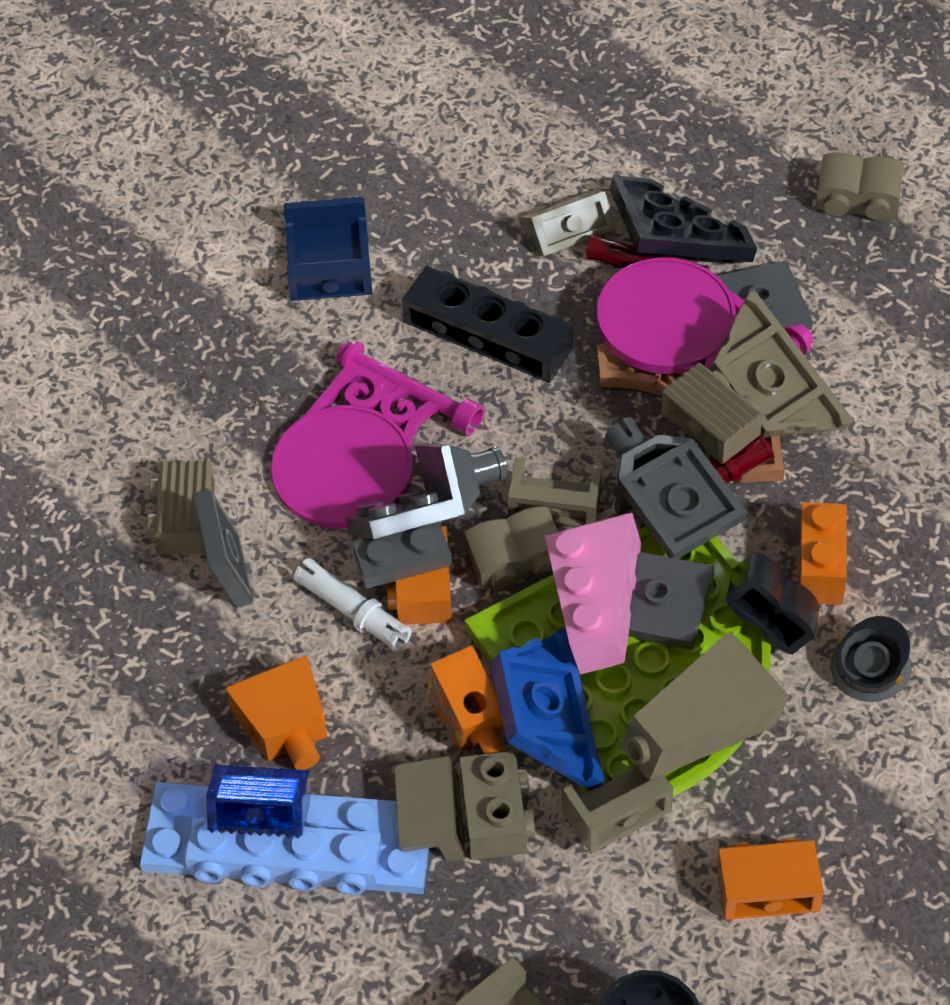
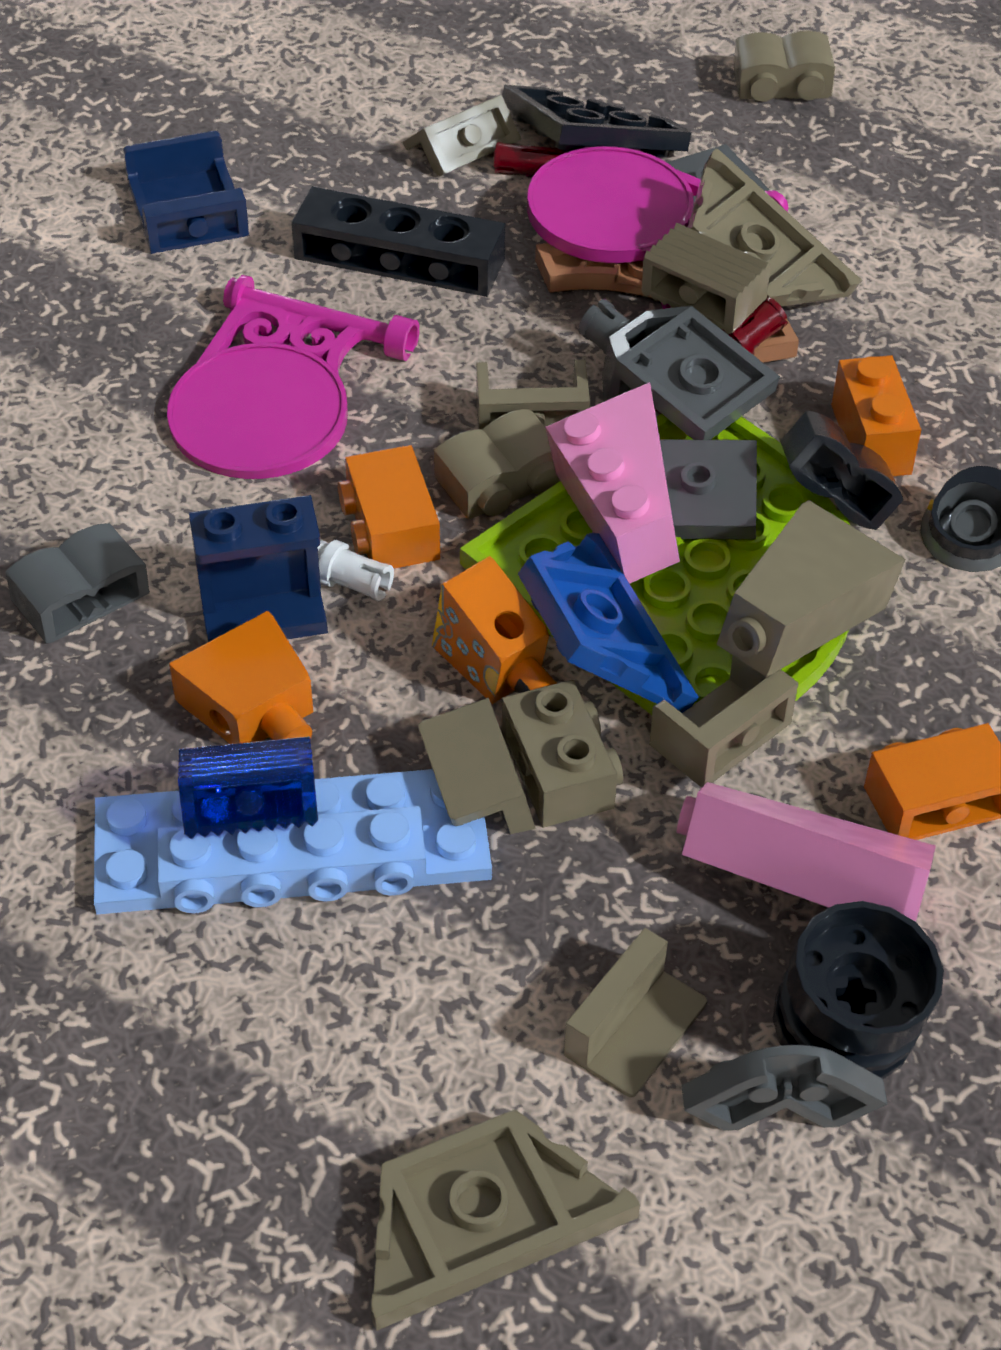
camera: 15 degrees left, 5 degrees down
(175, 601) = (77, 581): none -> dark grey brick
(176, 518) = (65, 476): dark tan brick -> none
(223, 548) = (126, 506): dark grey plate -> none
(305, 619) = (259, 562): none -> dark blue panel
(402, 555) = (365, 479): dark grey plate -> none
(450, 484) = (400, 395): dark grey plate -> none
(650, 921) = (804, 850): none -> bright pink slope

